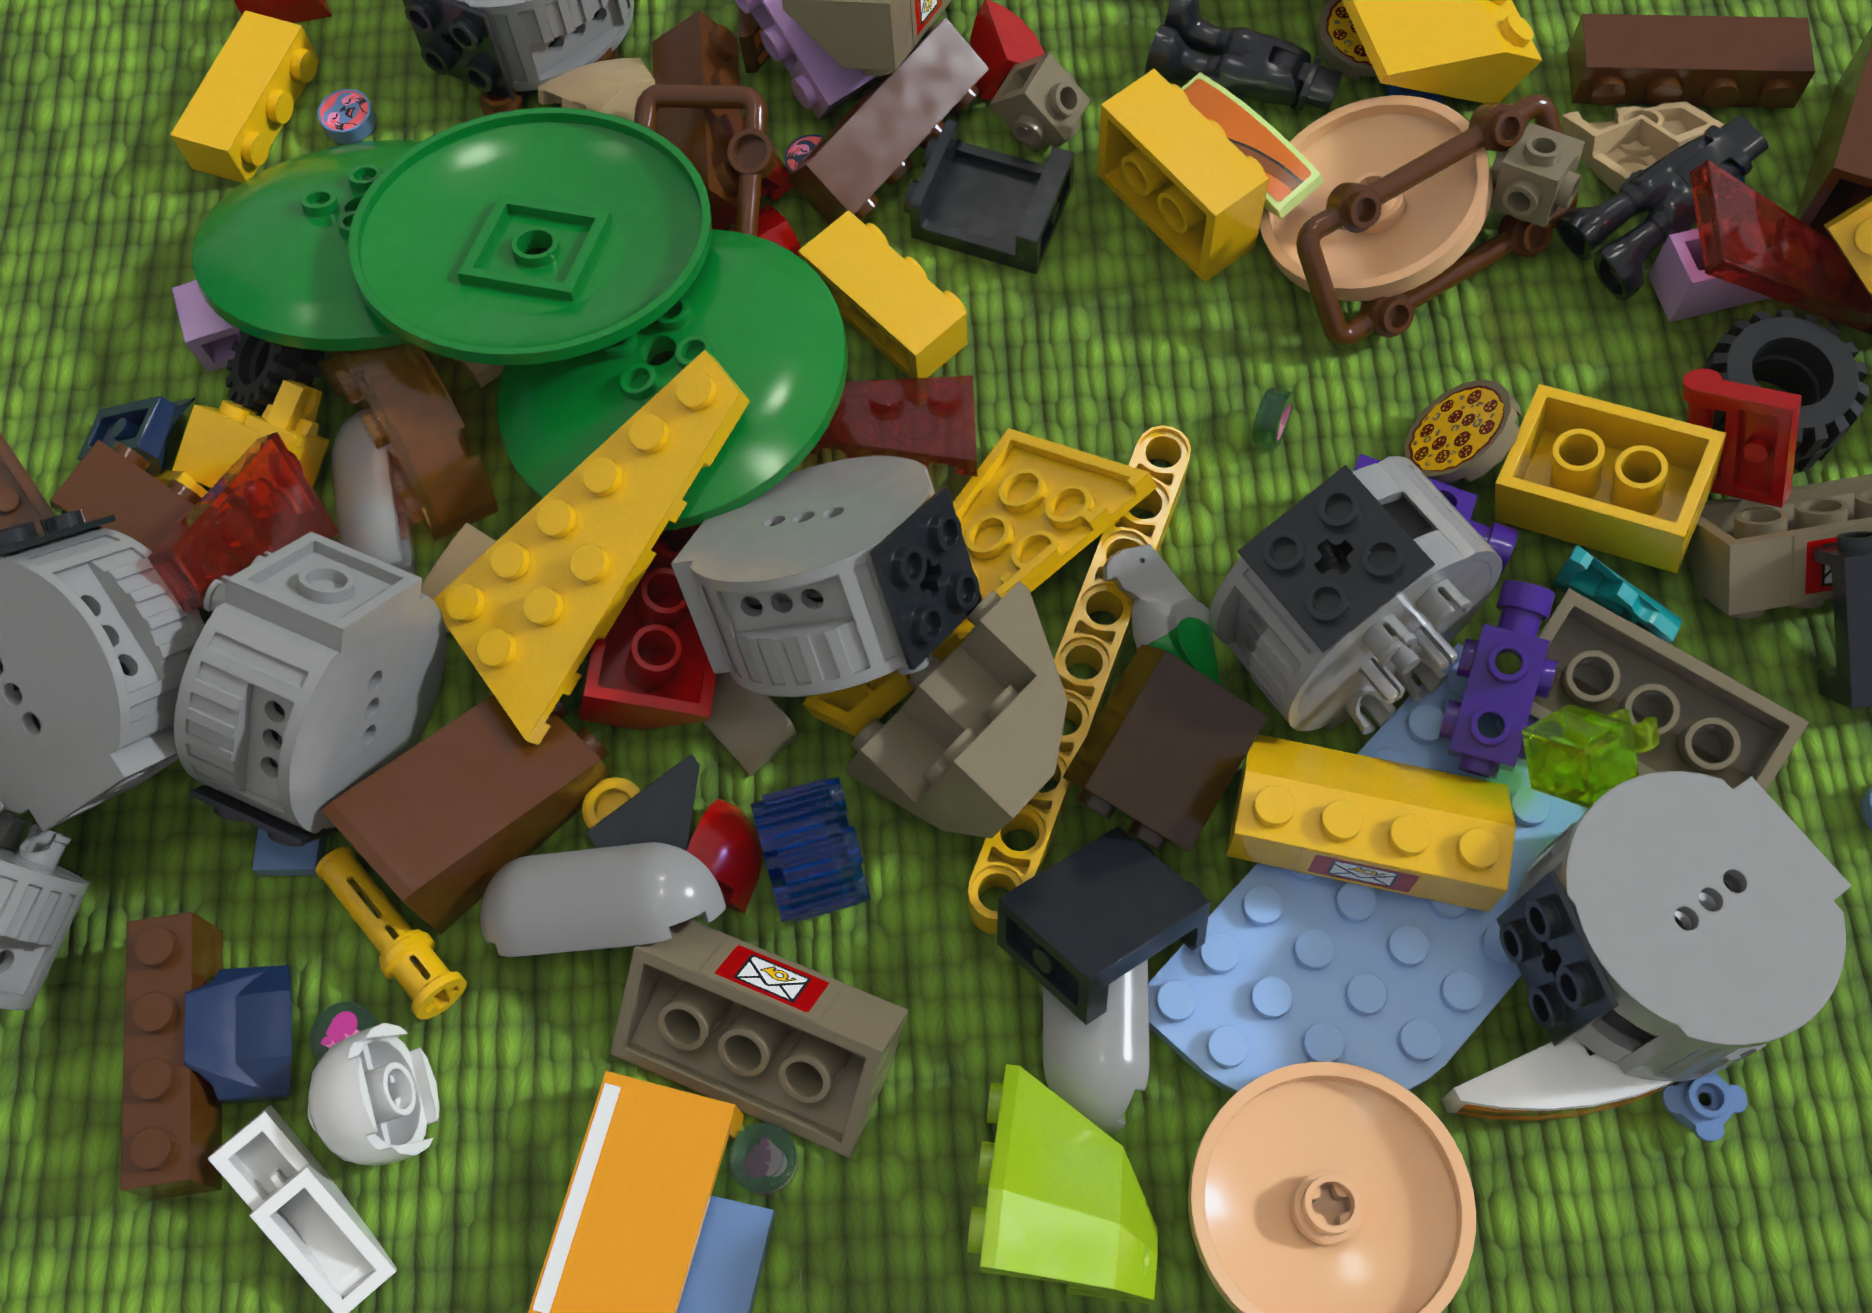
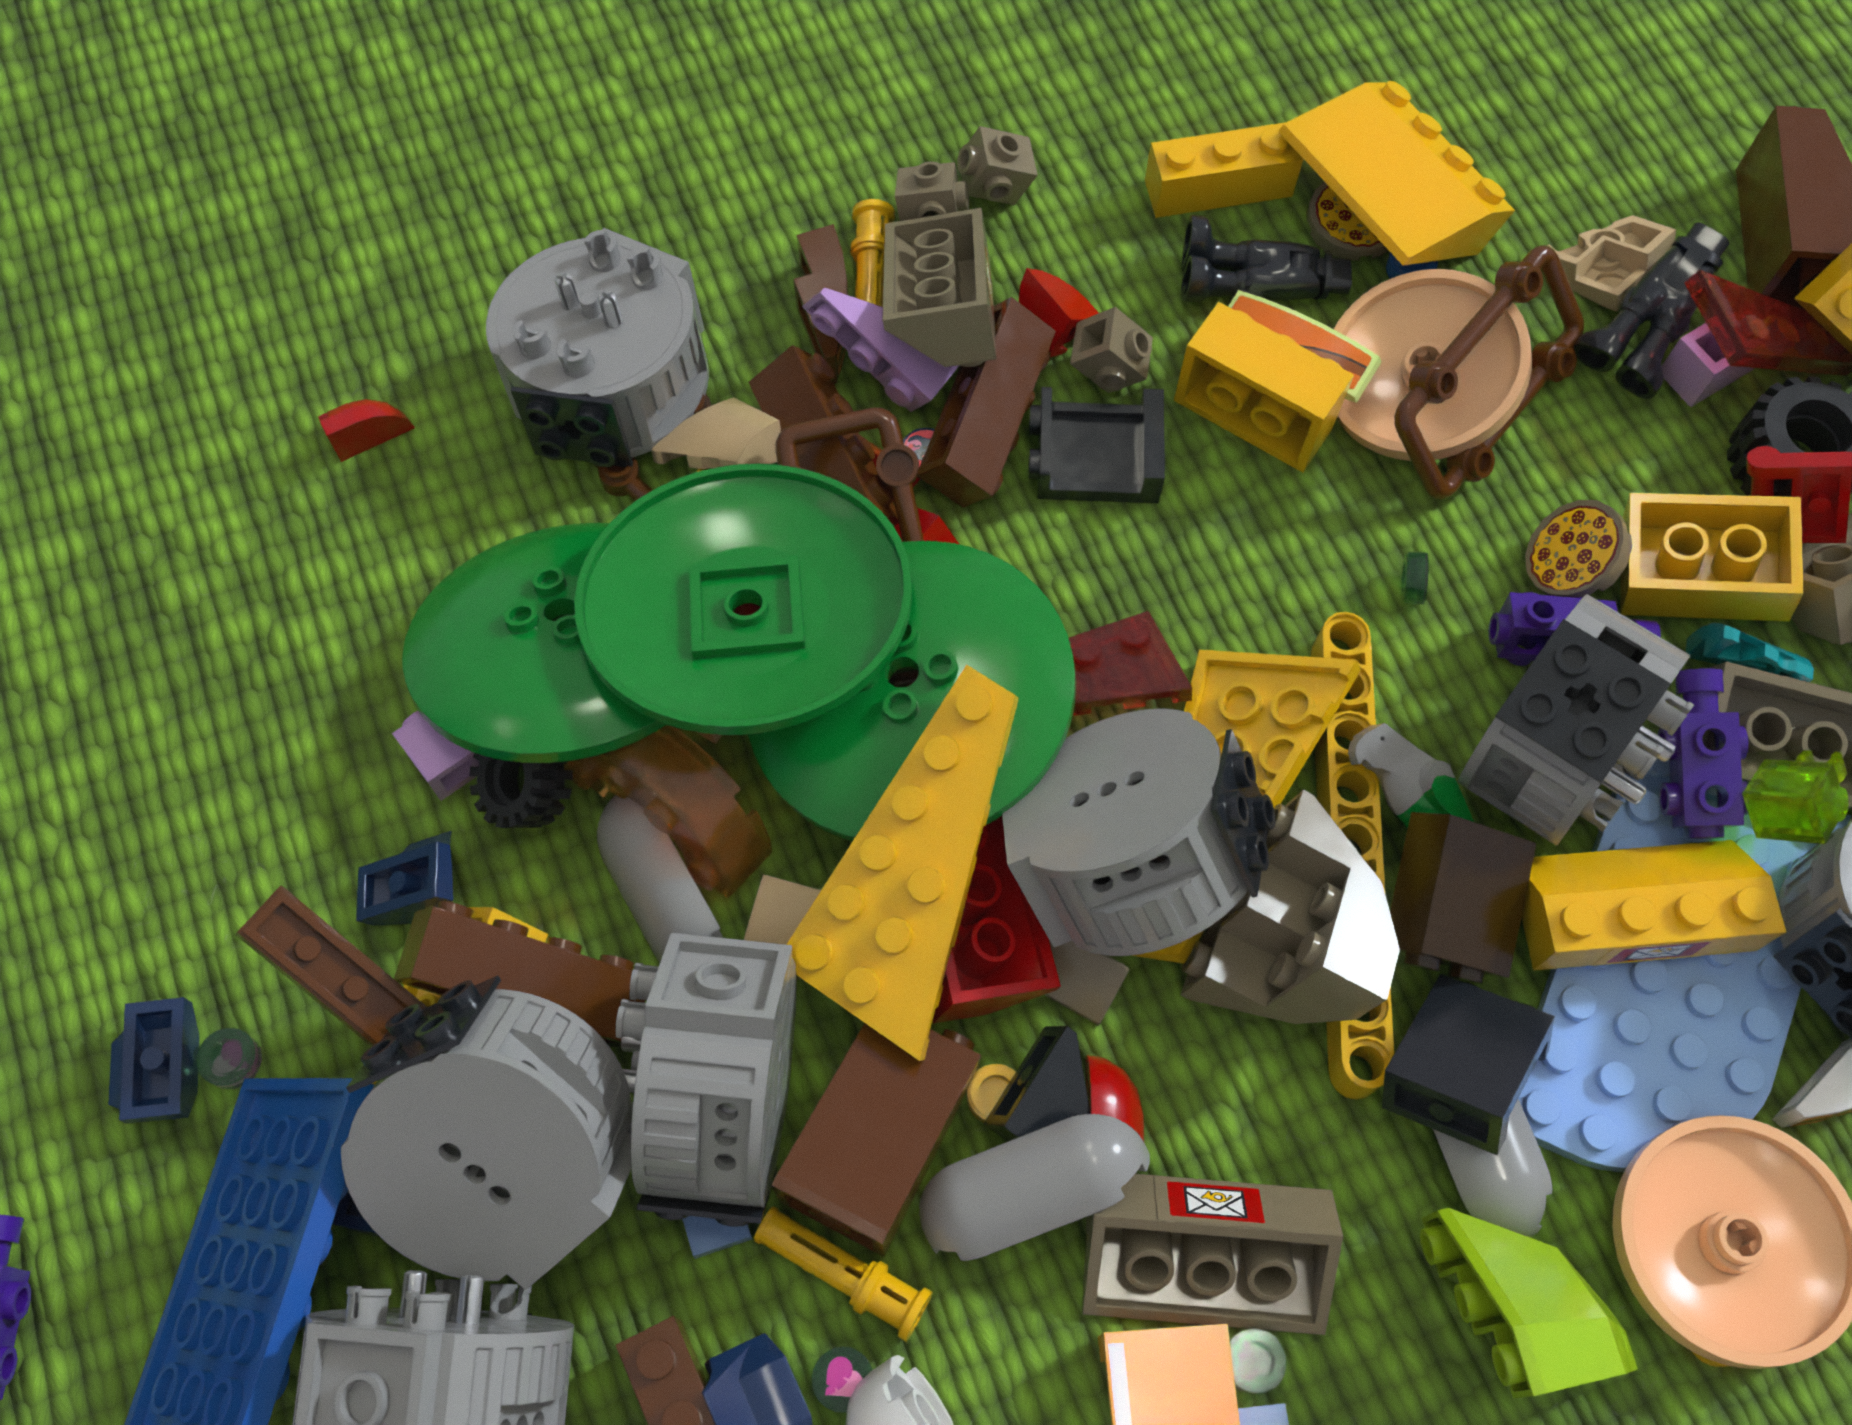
camera: 25 degrees left, 0 degrees up
(223, 434) = (541, 873): yellow hinge -> none
(246, 97) = (376, 529): yellow brick -> none
(249, 511) = (593, 944): clear red wing -> none
(347, 116) = (475, 521): tile -> none
(810, 850) = (1196, 1077): clear blue brick -> none
(887, 296) = (1067, 567): yellow brick -> none
(1537, 175) = (1561, 314): dark tan brick -> none
(1690, 60) = (1622, 180): reddish brown brick -> none

